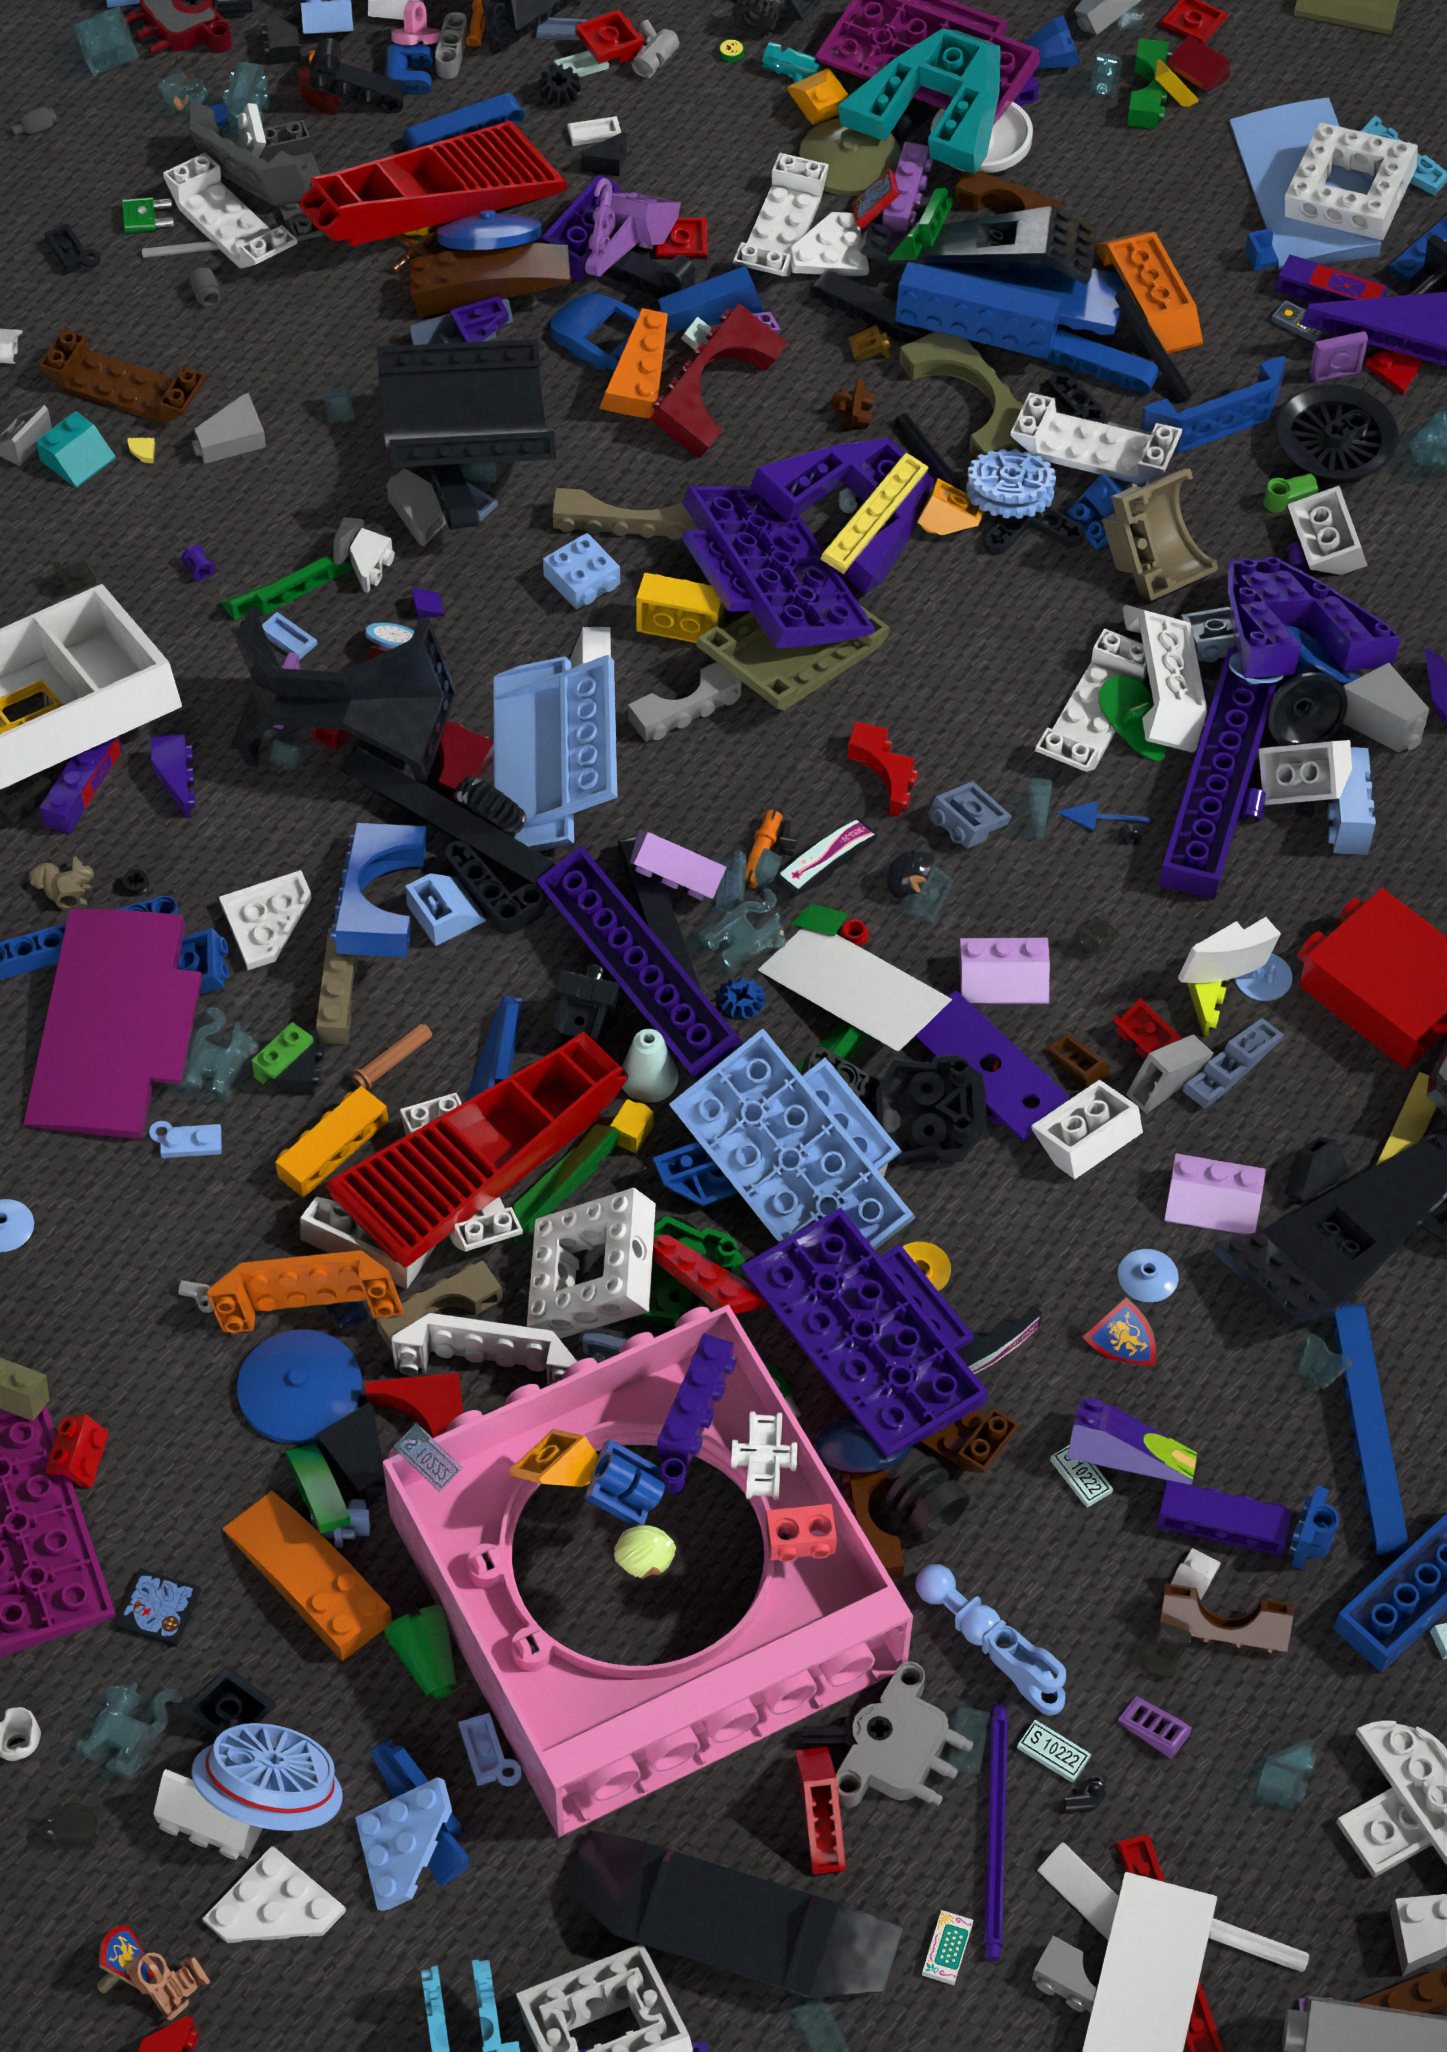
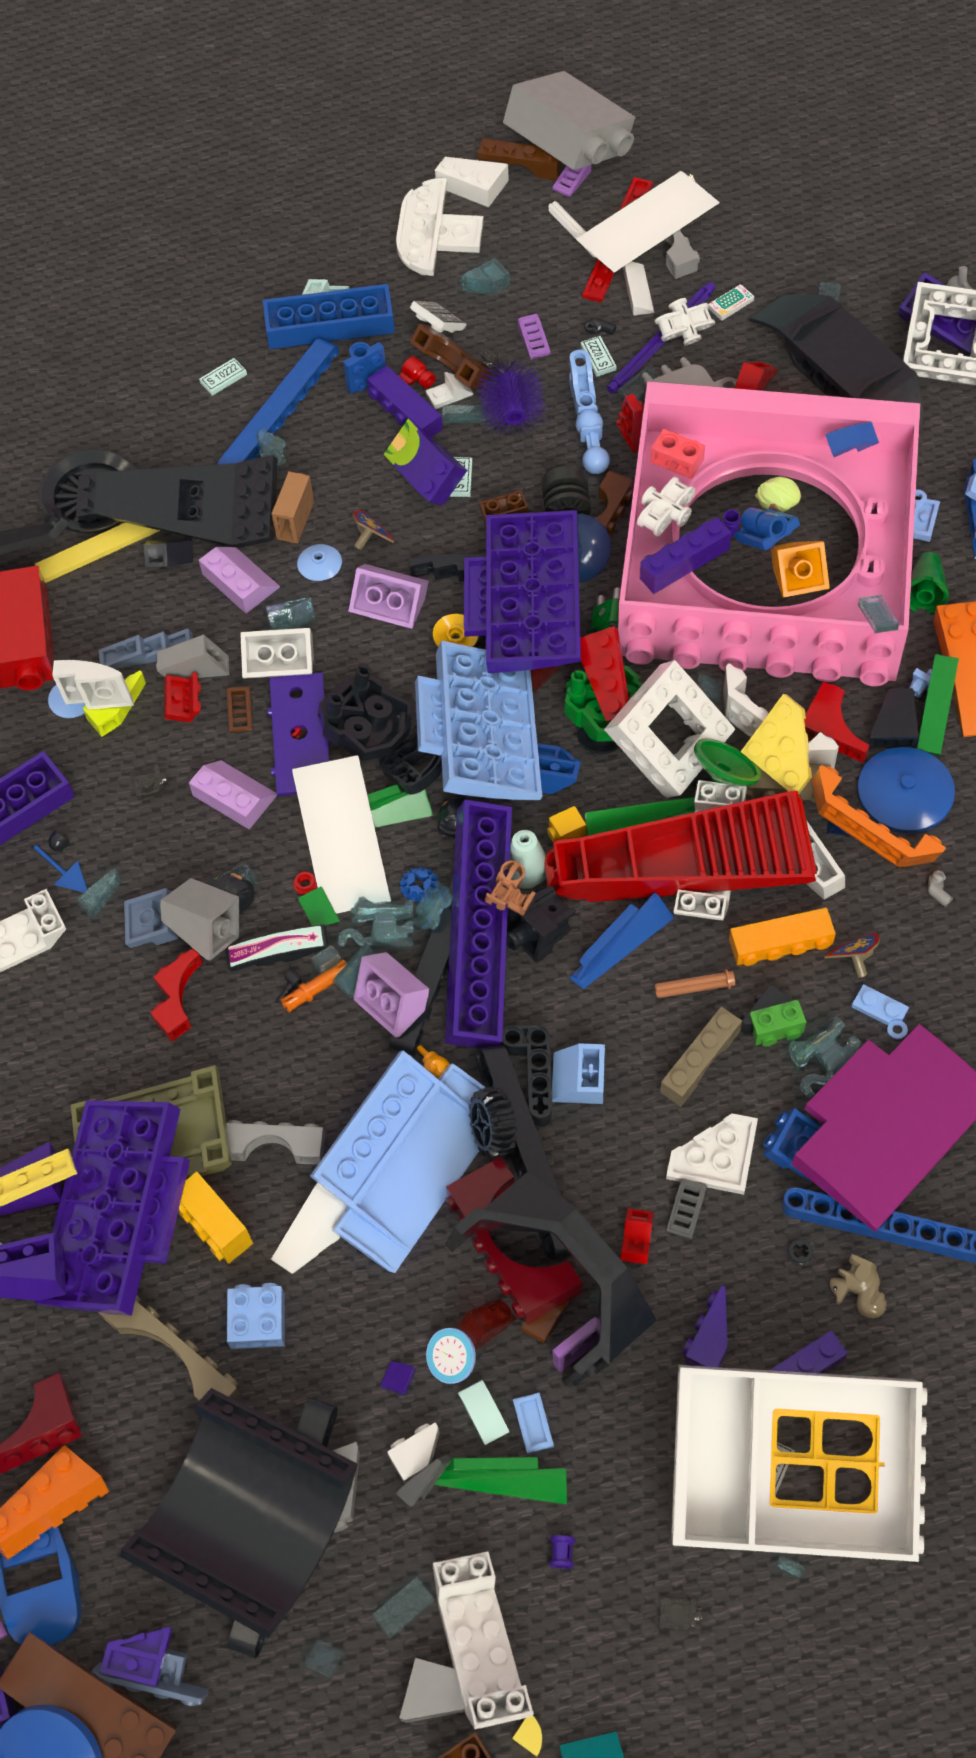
camera: 140 degrees left, 5 degrees up
(213, 457) = (479, 1641): none -> white slope
(247, 1173) = (859, 950): none -> shield
(267, 875) = (693, 1187): none -> dark grey slope
(294, 813) = (637, 1236): none -> red slope
(301, 469) = (403, 1607): none -> clear light blue tile
(337, 617) = (483, 1412): none -> light aqua slope
(361, 925) = (603, 1152): blue arch -> none
(459, 1308) = (782, 745): none -> light yellow plate
(495, 1272) = (726, 763): none -> green dish
(592, 844) = (433, 1062): none -> light orange piece
(605, 1681) = (851, 437): none -> blue slope
(630, 987) = (510, 895): none -> nougat piece
(701, 963) = (431, 906): none -> clear light blue plate
(916, 822) = (202, 916): none -> light grey slope
(928, 1639) = (631, 421): none -> red wing
(976, 1854) = (684, 321): none -> white axle
(1034, 1273) = (387, 595): none -> lavender slope
(1093, 1581) = (511, 397): none -> dark purple piece
(1115, 1177) = (291, 614): none -> clear light blue slope
(1149, 1563) = (463, 413): none -> clear light blue slope
(1224, 1296) = (293, 507): none -> medium nougat brick
(1254, 1579) = (415, 370): none -> red piece
(1292, 1667) = (438, 316): none -> tile

